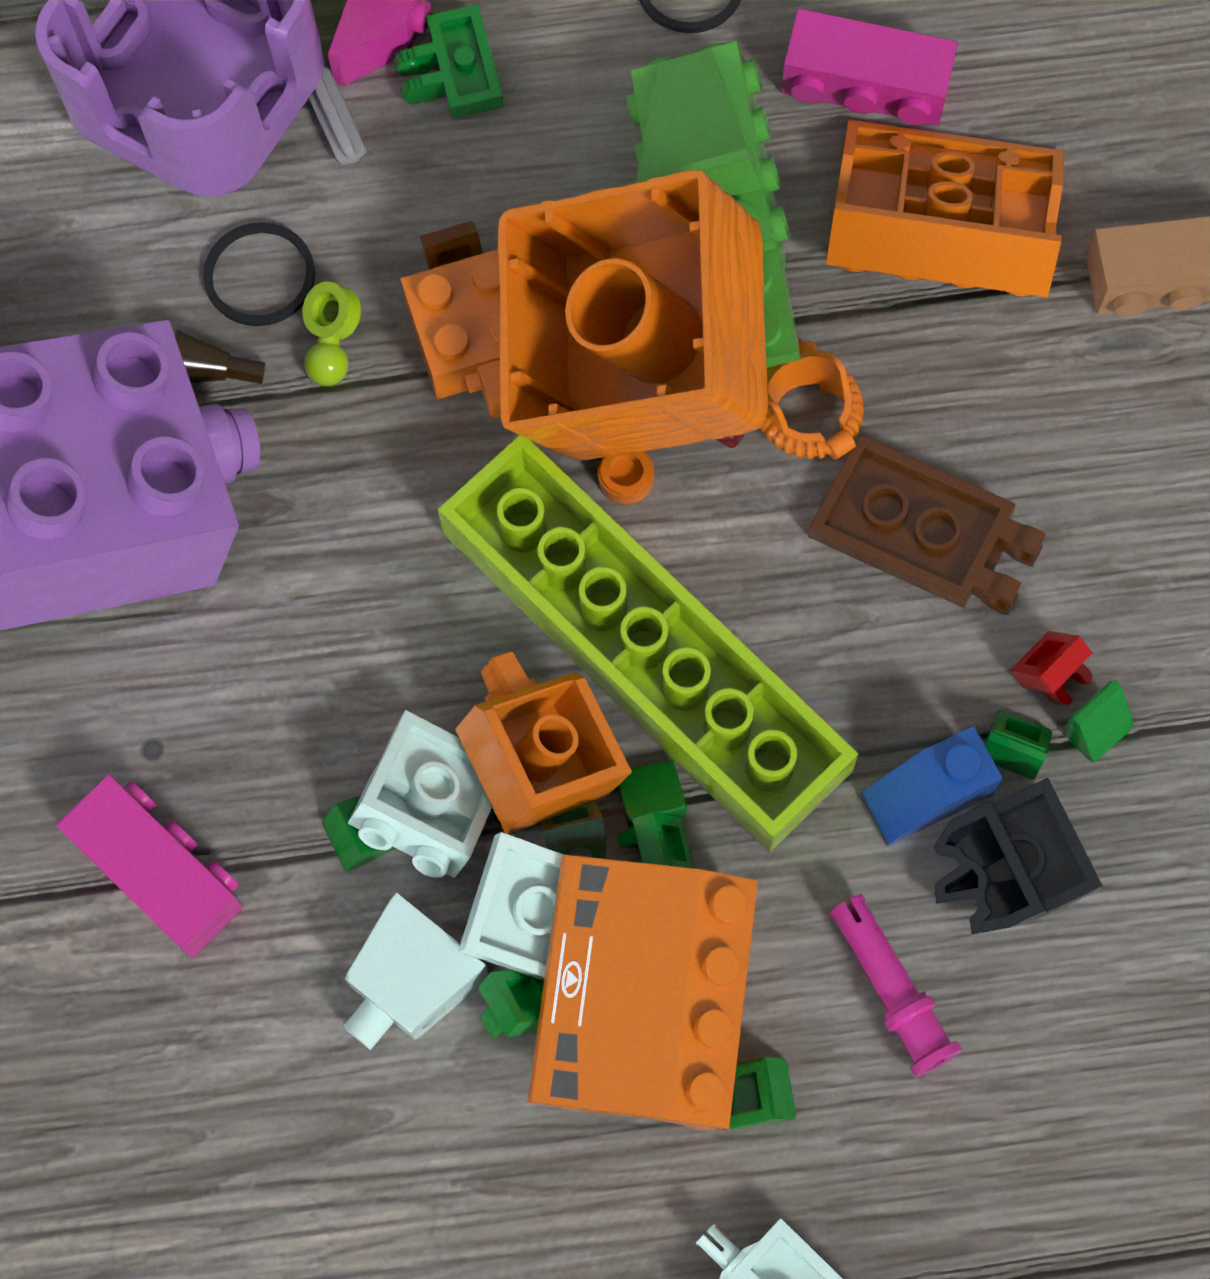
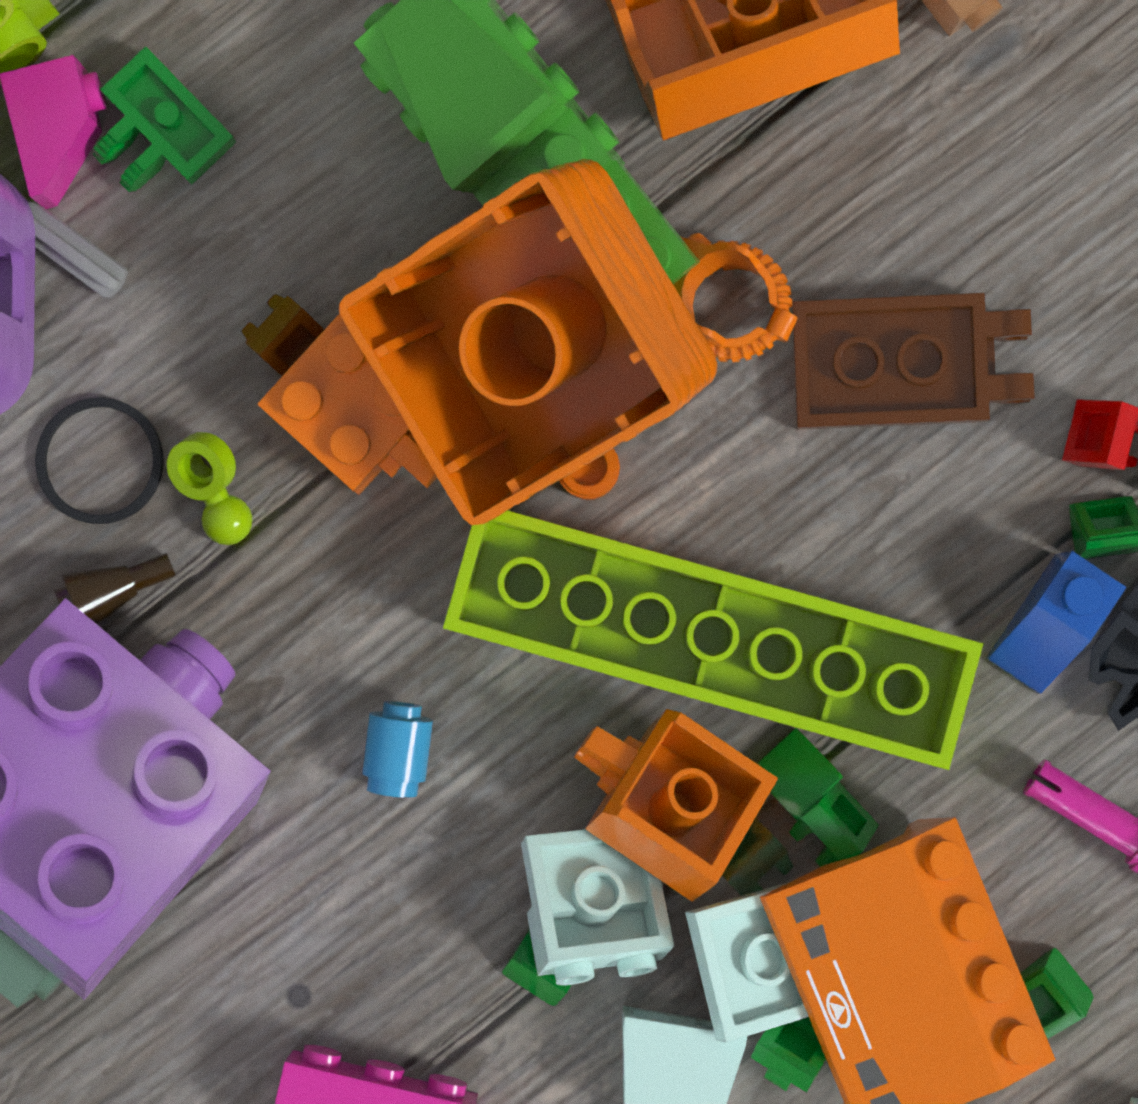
camera: 30 degrees left, 15 degrees up
(347, 597) = (397, 749): none -> dark azure brick

